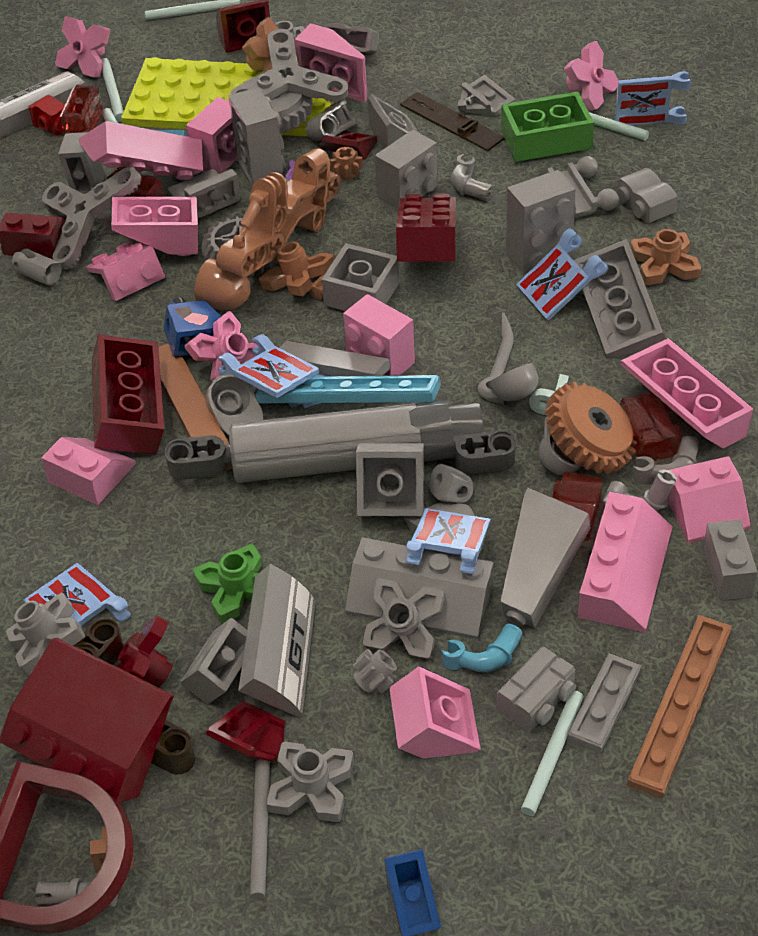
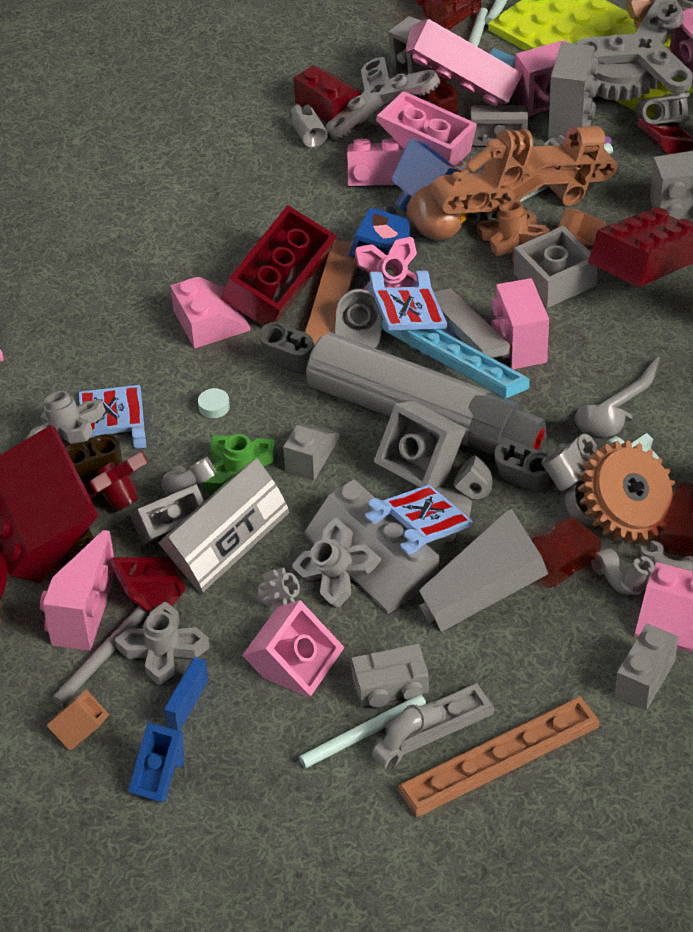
camera: 35 degrees right, 0 degrees up
(162, 542) = (213, 403): none -> light aqua tile
(183, 256) = (417, 169): none -> blue torso
(199, 629) = (180, 479): none -> light grey piece
(208, 792) = (79, 595): none -> bright pink slope
(288, 538) = (308, 450): none -> light grey slope
(293, 33) = (676, 18): none -> light grey bush
(297, 900) = (78, 720): none -> nougat panel
(346, 163) = (642, 153): nougat gear -> none
(353, 236) = (582, 226): none -> nougat panel
(376, 815) = (186, 694): none -> blue tile
(496, 654) = (381, 633): medium azure piece -> none
(529, 426) = (566, 461): none -> light grey piece
(601, 714) = (413, 720): none -> light grey piece
(625, 564) = (556, 619): bright pink slope -> none

